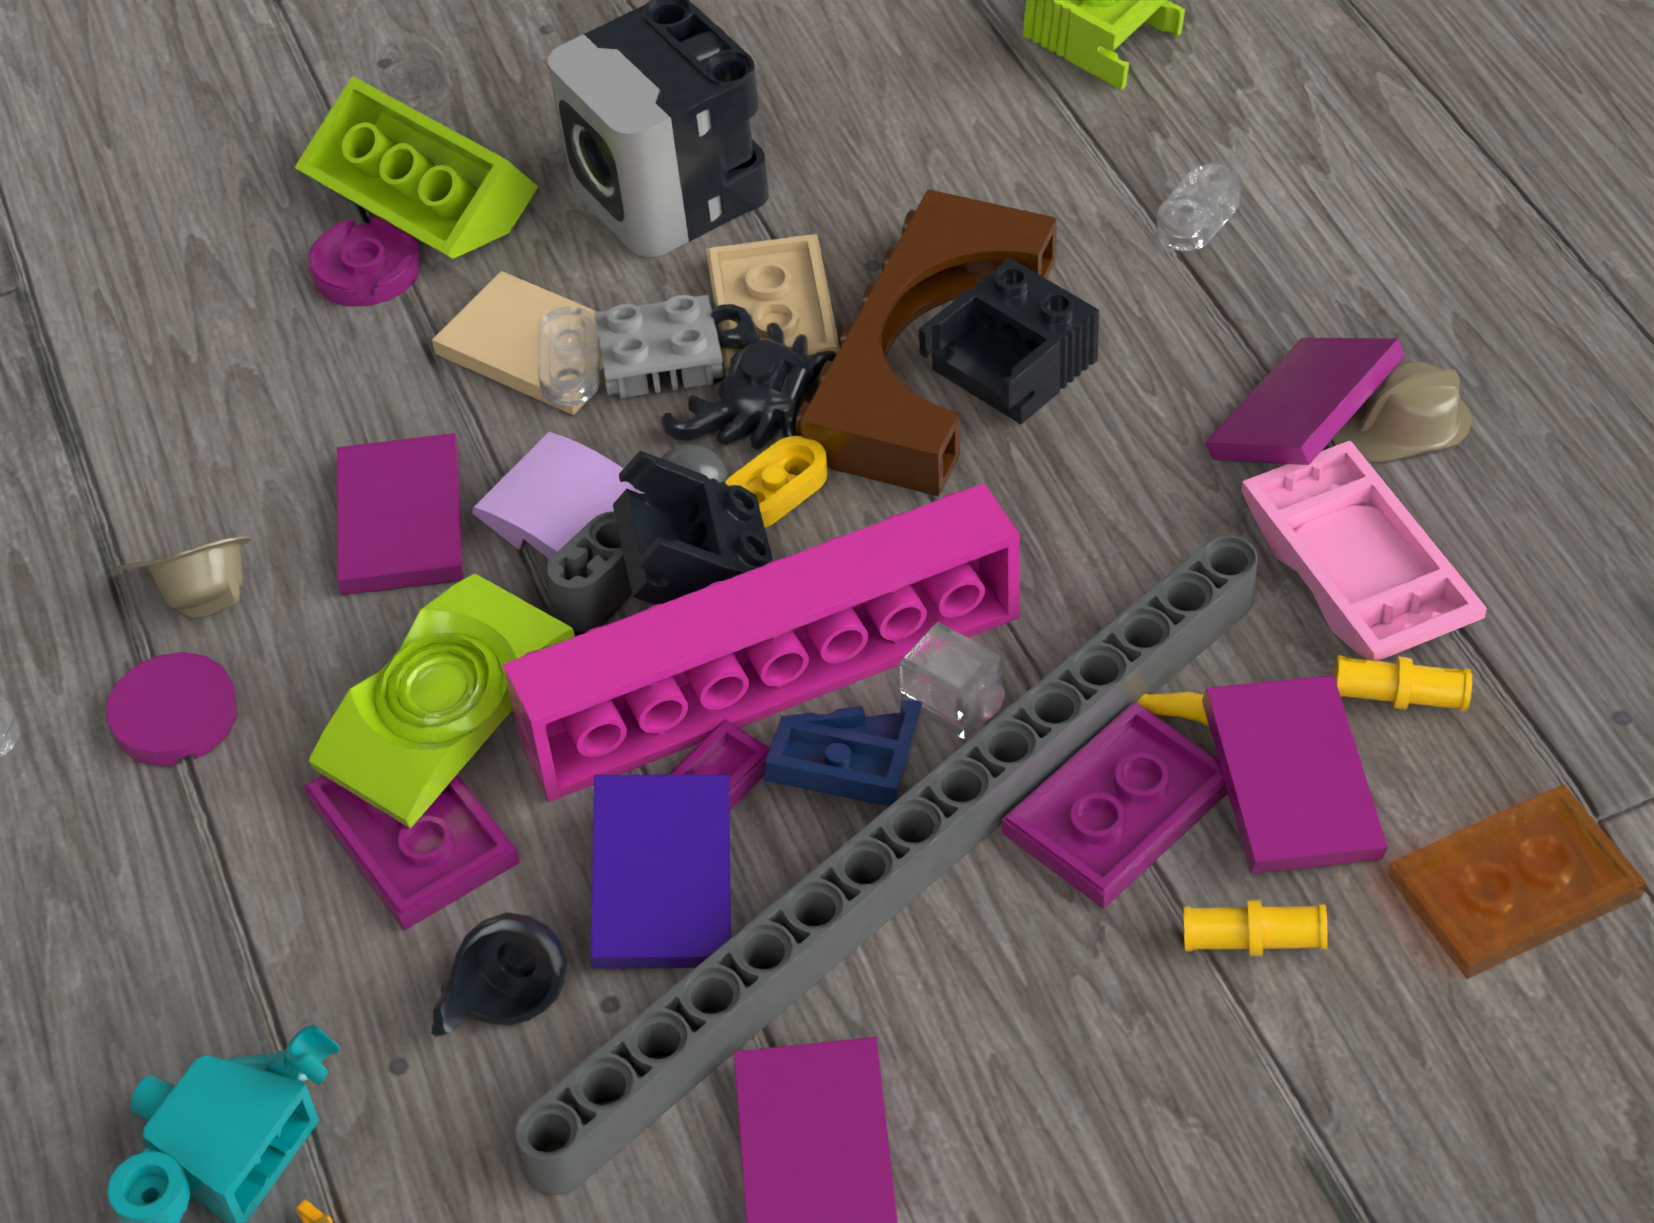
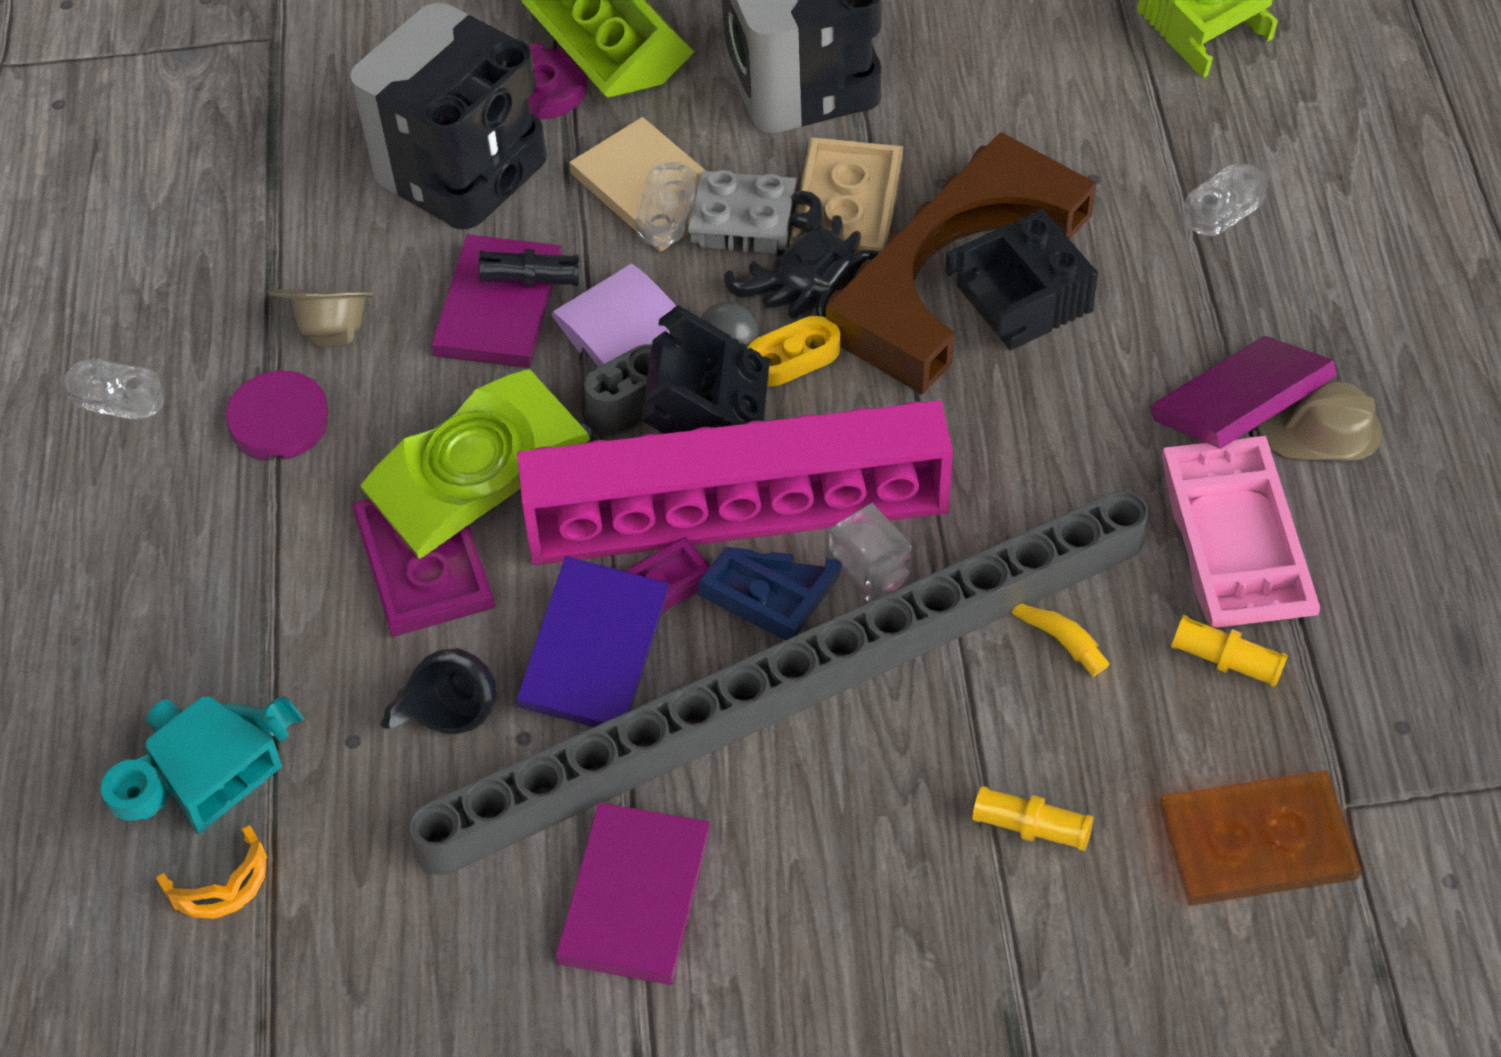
camera: 15 degrees right, 5 degrees up
(277, 313) = (449, 114): none -> black piece
(428, 465) = (528, 268): none -> black pin
(1117, 804) = (967, 687): magenta tile -> none
(1293, 774) = (1111, 702): magenta tile -> none

